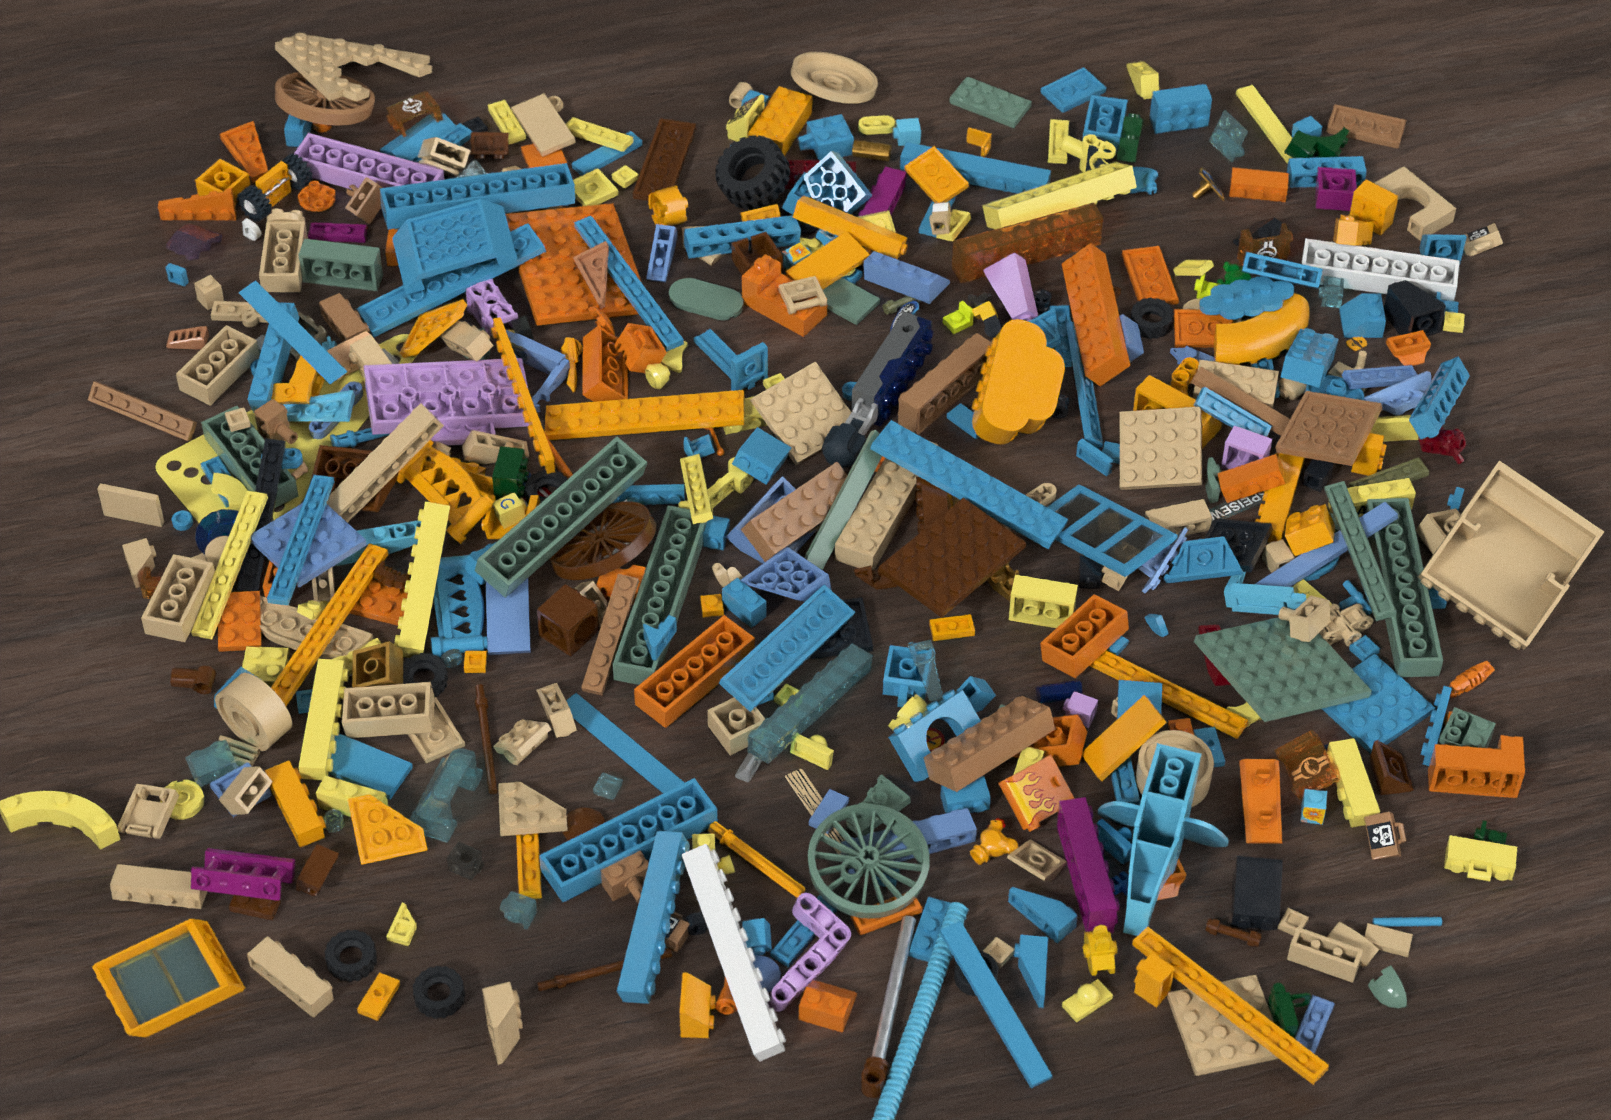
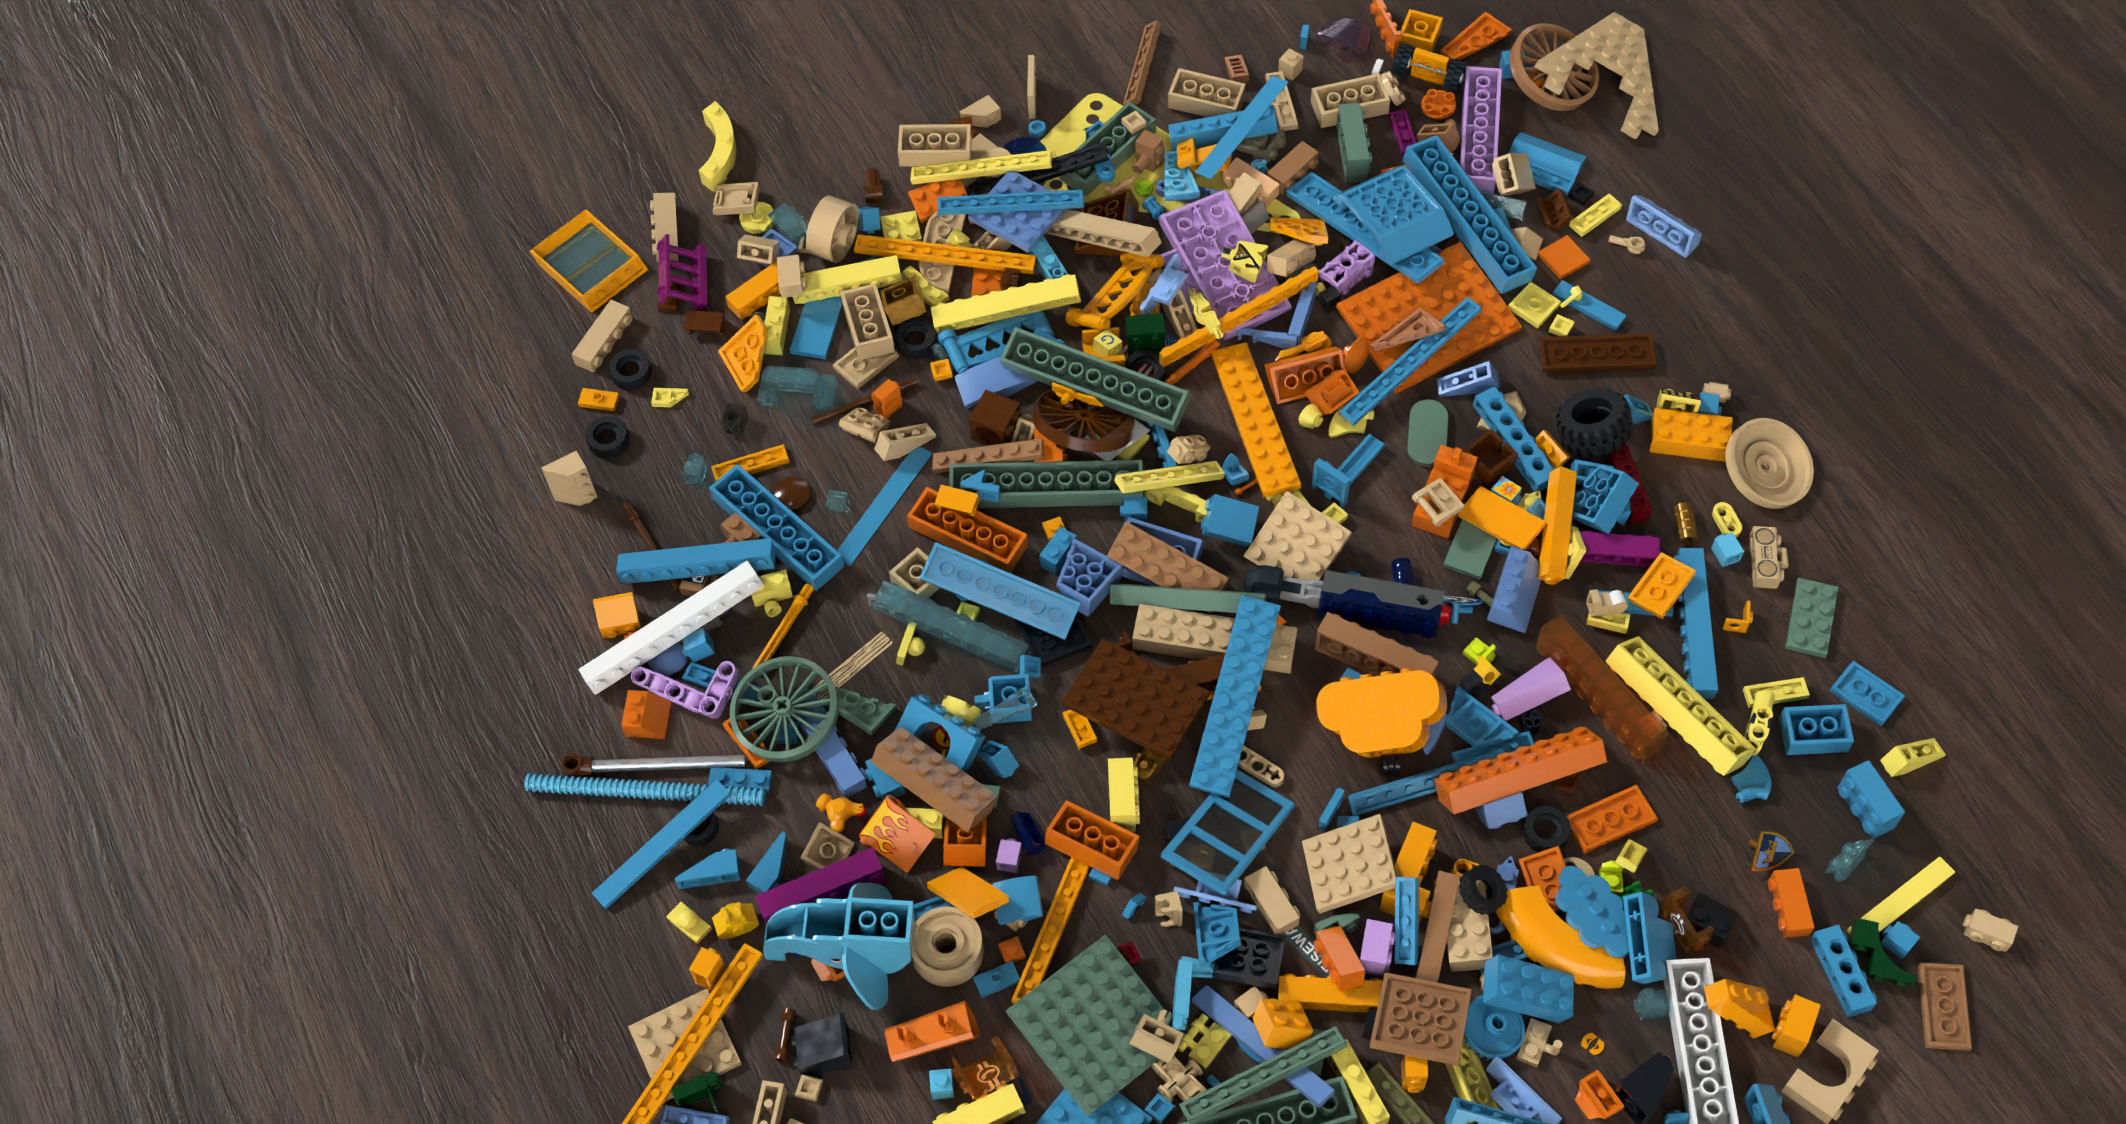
camera: 80 degrees right, 10 degrees up
(306, 758) = (790, 276): none -> tan brick
(310, 445) = (1144, 188): none -> lime plate
(412, 108) = (1572, 136): clear orange panel -> none
(460, 369) = (1246, 259): none -> light yellow torso
(466, 441) = (1166, 287): none -> light blue bracket
(502, 708) = (887, 399): none -> orange brick
(522, 412) = (1203, 313): none -> light yellow piece
(528, 811) = (793, 448): tan plate -> none
(543, 125) = (1599, 242): tan tile -> none
(544, 78) = (1663, 226): none -> light blue slope
(570, 541) = (1068, 394): none -> light orange piece
(595, 155) = (1576, 295): none -> light yellow hand
(599, 134) = (1608, 290): light yellow tile -> none
(664, 470) = (1188, 449): none -> tan brick
(667, 659) = (957, 500): none -> light orange hinge
(668, 206) = (1527, 367): light orange brick -> none
(725, 576) = (1089, 534): tan helmet -> none
(827, 136) = (1685, 479): dark azure hinge -> none
(831, 803) = (848, 672): medium blue tile -> none
(859, 352) = (1402, 571): none -> clear blue brick
(877, 647) = (1030, 665): none -> dark azure plate
(925, 108) = (1764, 563): none -> tan piece
(999, 951) = (722, 838): tan plate -> none
(1130, 138) = (1817, 756): dark green arch -> none
(1173, 589) = (1169, 905): none -> tan hinge
(1216, 356) = (1494, 883): none -> black tyre
(1310, 77) = (1990, 930): none -> tan brick
(1335, 188) = (1814, 979): magenta slope -> none
(1363, 316) = (1627, 1043): dark azure slope -> none
(1377, 376) = (1539, 1071): medium blue tile -> none

